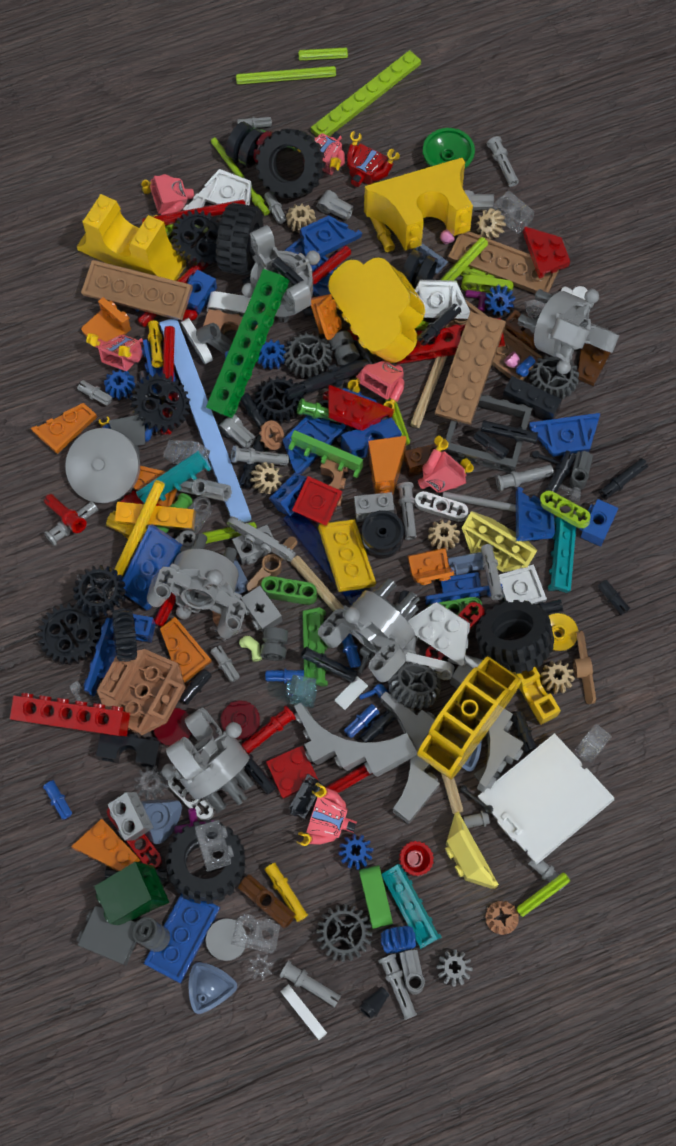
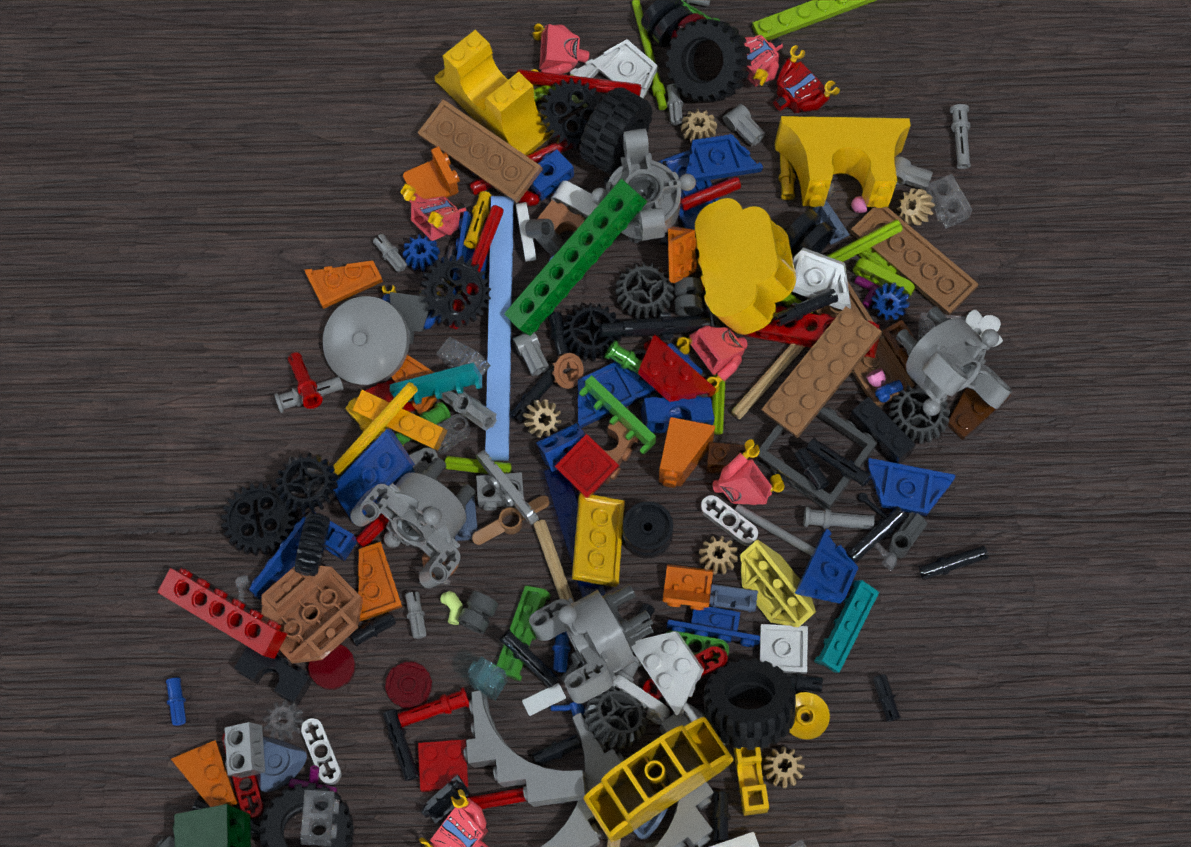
camera: 20 degrees right, 0 degrees up
(212, 763) = (354, 722): light grey piece -> none
(250, 456) = (534, 387): light grey pin -> none
(259, 600) = (474, 555): light grey brick -> none
(271, 354) = (601, 282): blue gear -> none
(277, 675) = (475, 652): blue axle -> none
(286, 271) = (648, 189): black axle -> none
(296, 596) = (513, 547): bright green beam -> none
(361, 721) = (541, 736): blue axle -> none
(371, 503) = (646, 489): light grey brick -> none
(406, 502) = (691, 501): light grey pin -> none
(448, 143) = (901, 93): green dish -> none
(490, 565) = (752, 625): light grey pin -> none
(546, 251) = (968, 261): red wing -> none
(550, 506) = (853, 568): lime beam -> none
(583, 669) = (818, 767): medium nougat piece -> none
(603, 512) = (898, 616): blue brick -> none

